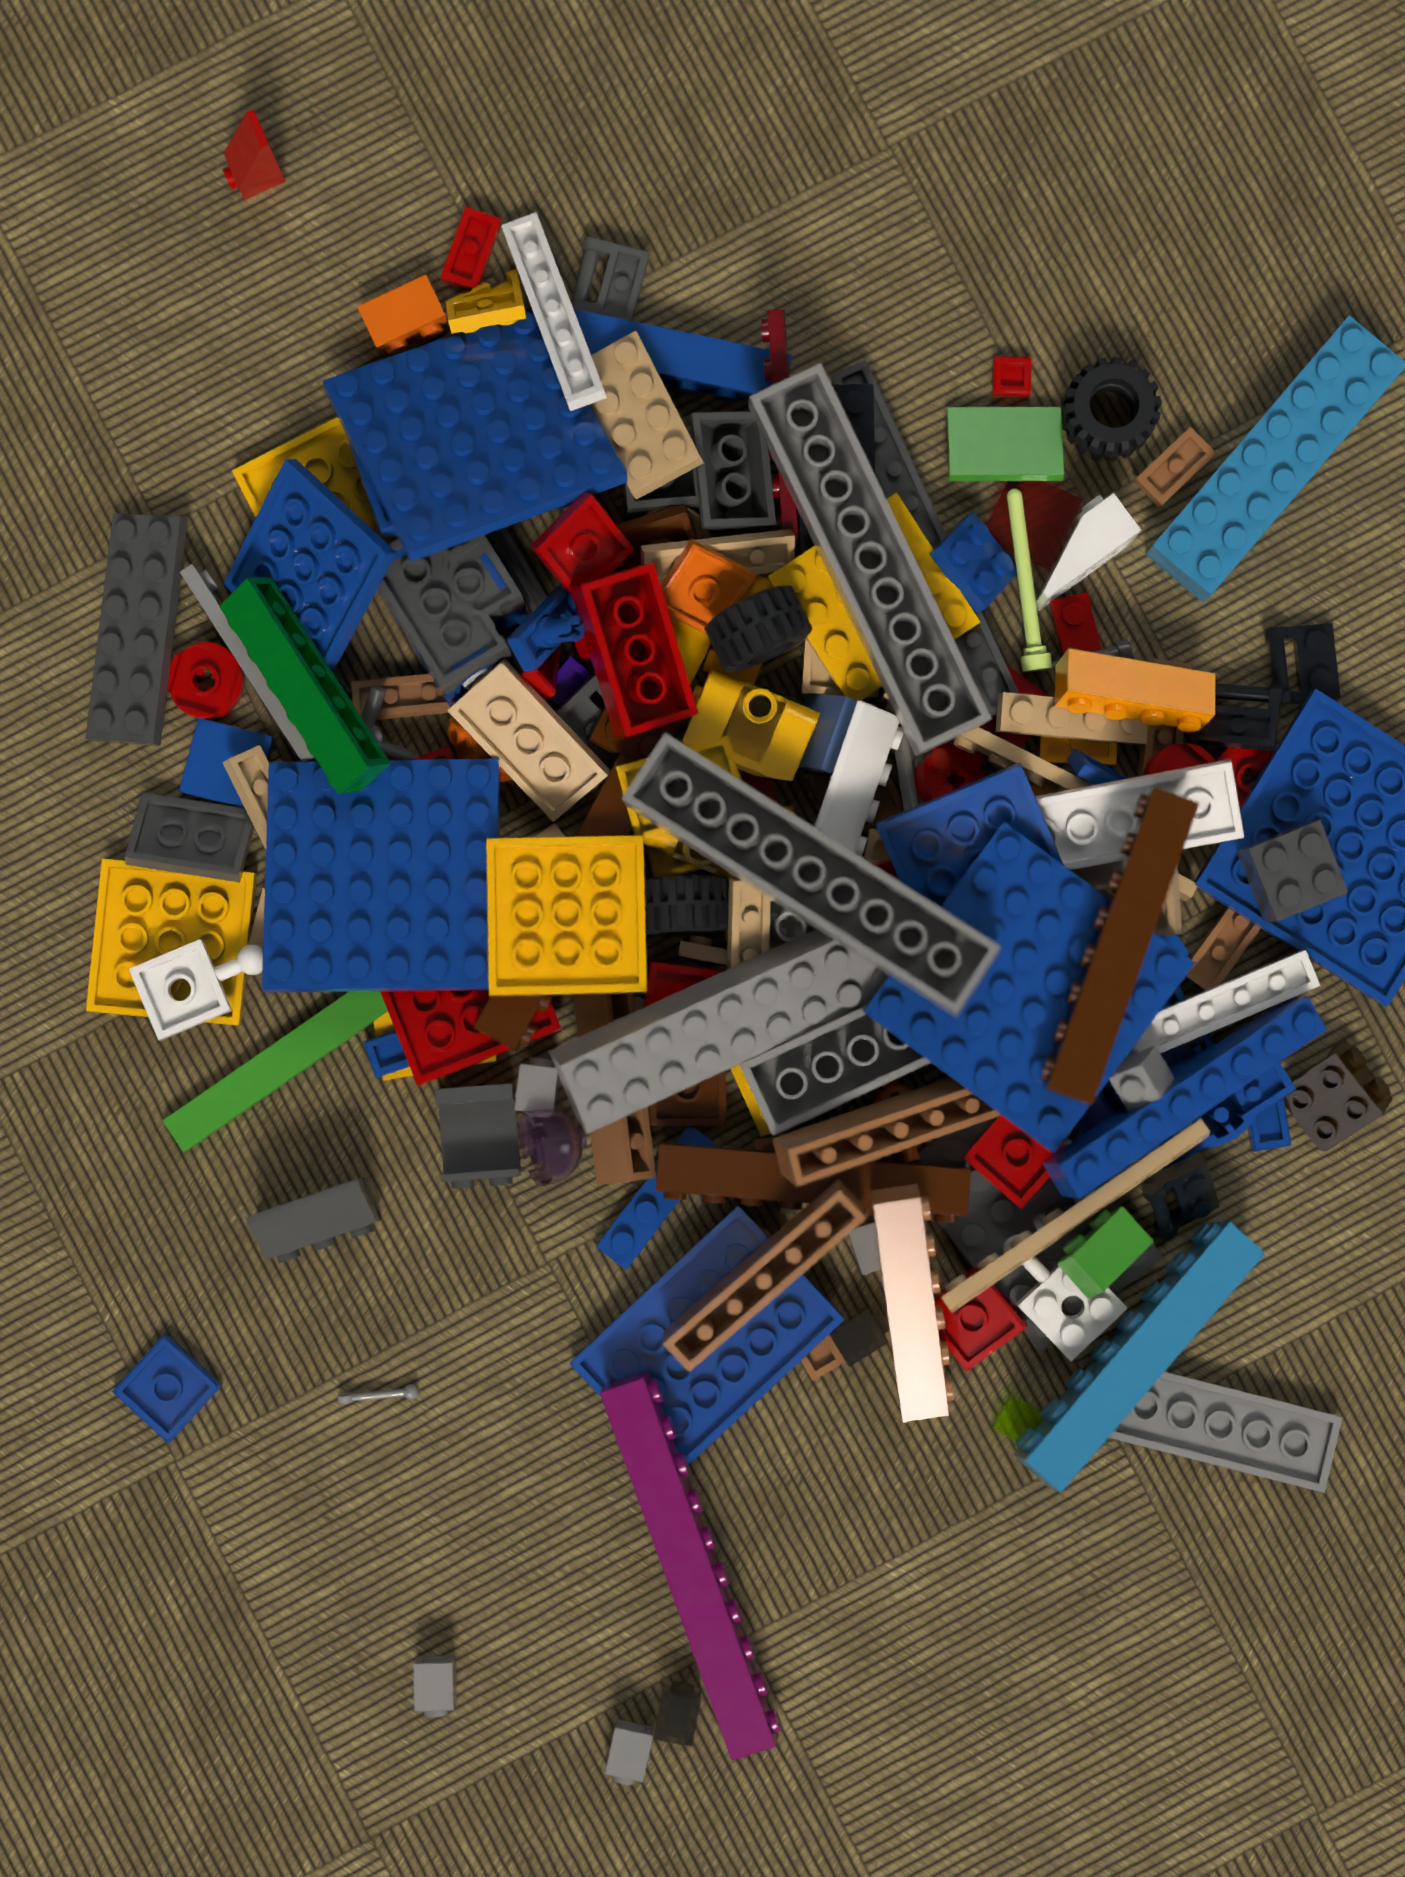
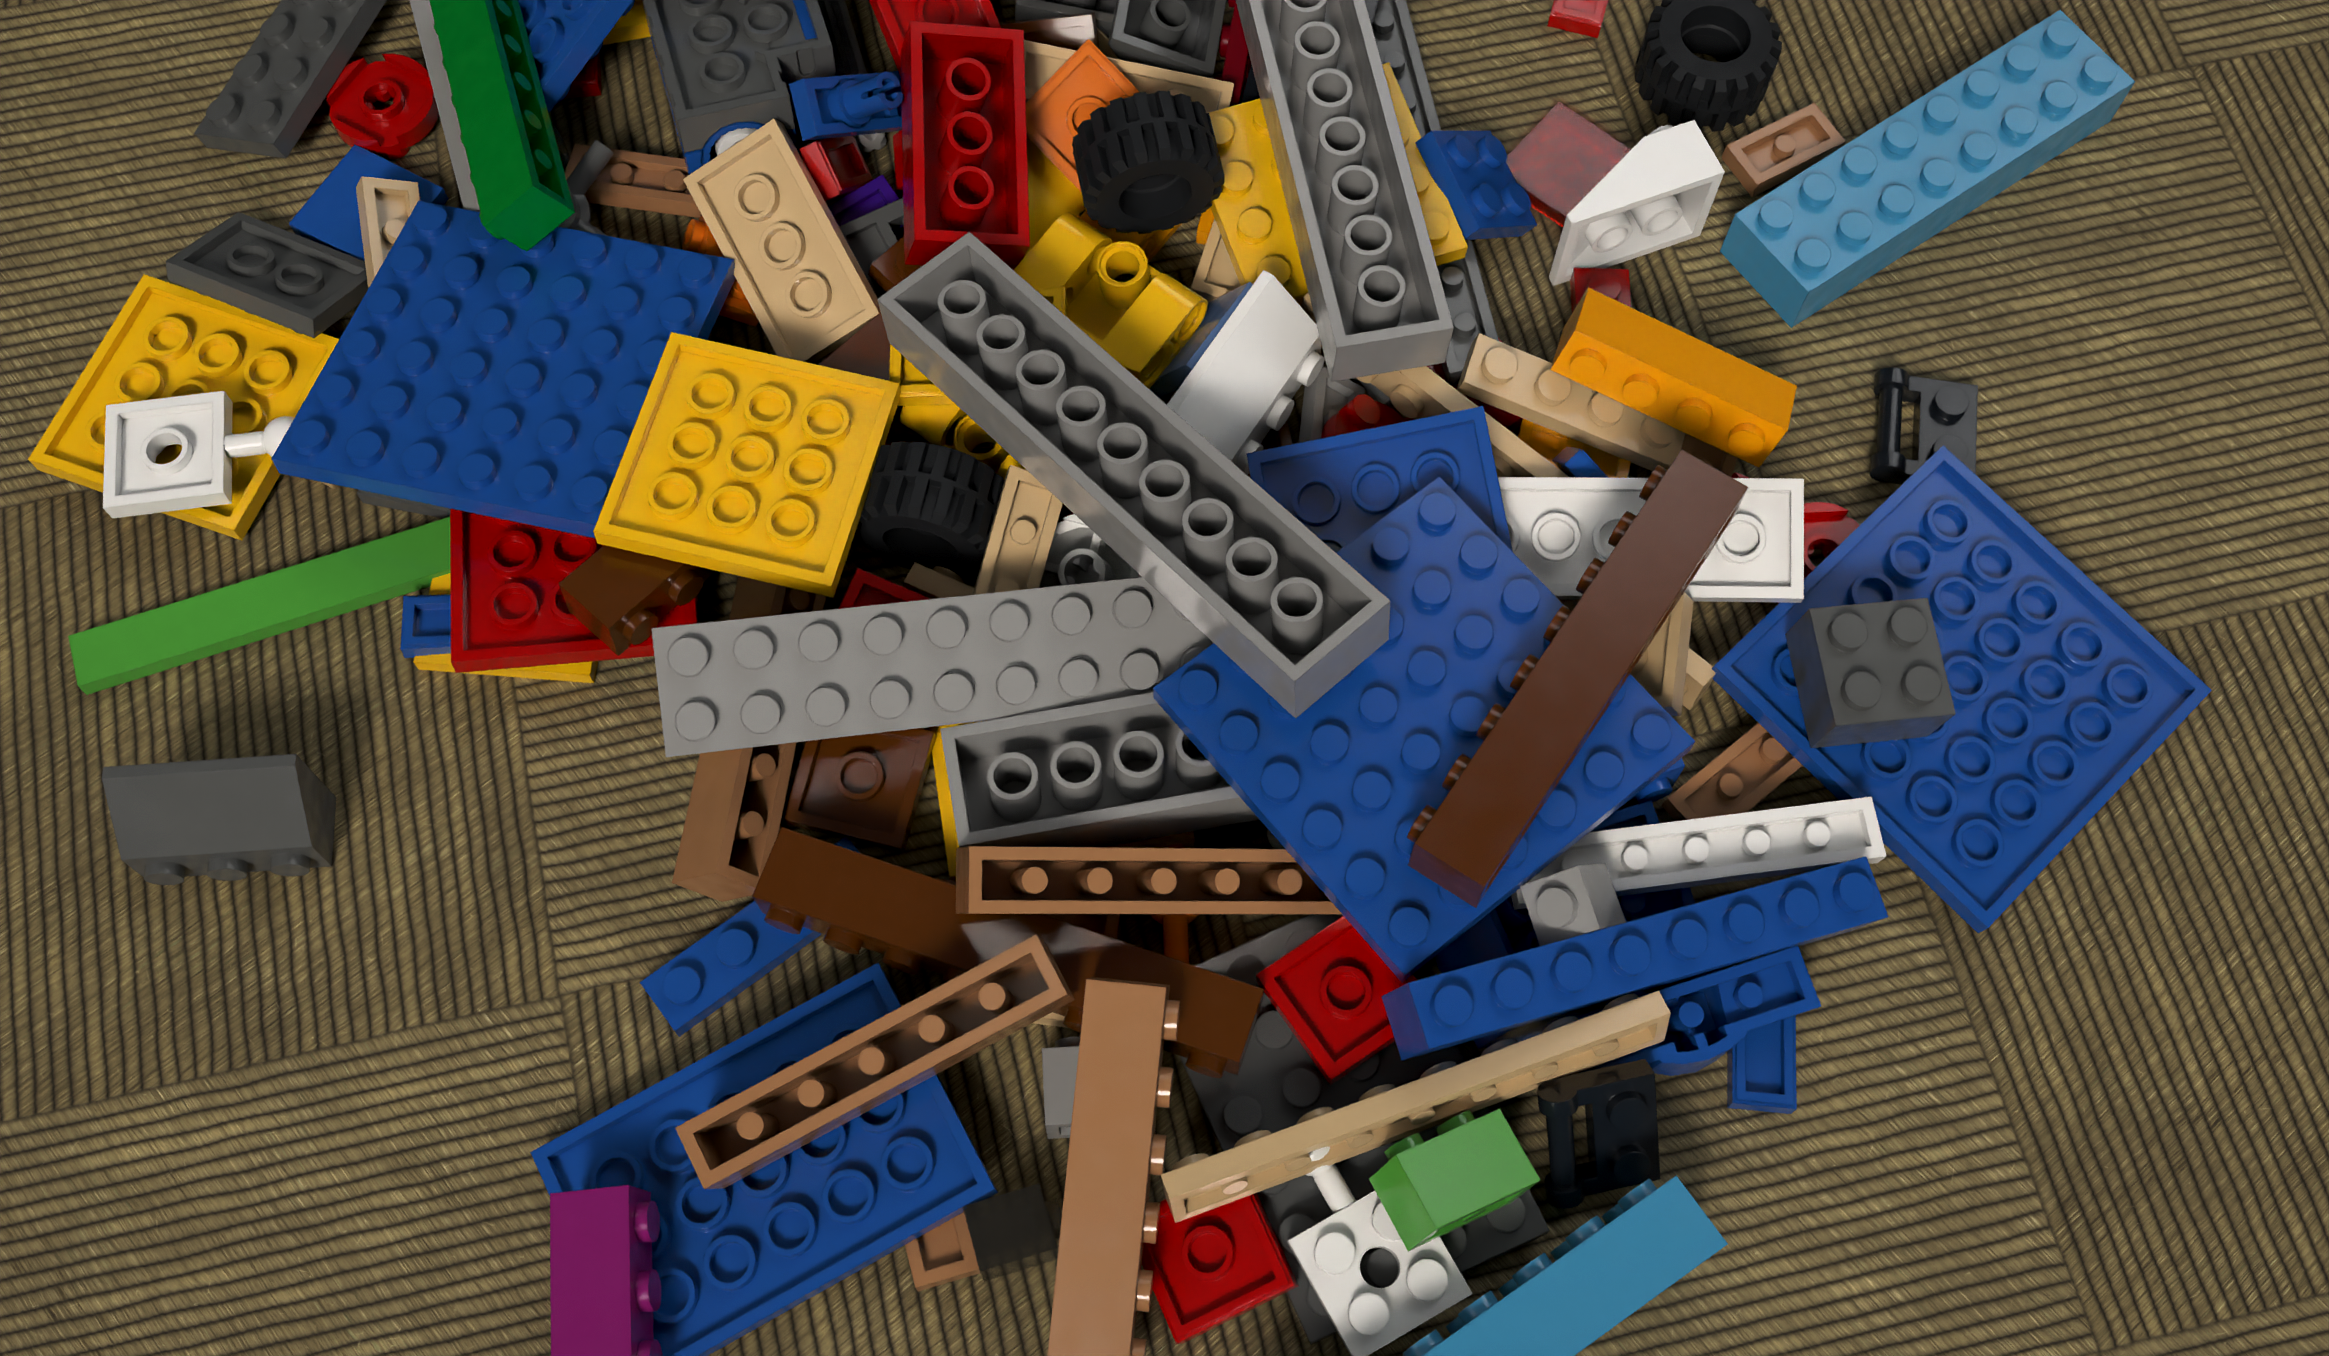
camera: 15 degrees right, 20 degrees down
(409, 1392) = (265, 1138): light grey hinge -> none
(478, 1134) = (525, 768): dark grey panel -> none
(537, 1085) = (629, 726): light grey brick -> none
(552, 1144) = (626, 805): cylinder -> none
(1005, 444) = (1553, 71): bright green tile -> none
(1035, 654) = (1536, 330): yellowish green piece -> none
(1242, 725) = (1837, 465): black plate -> none
(1337, 1097) = (1881, 1049): dark brown bracket -> none

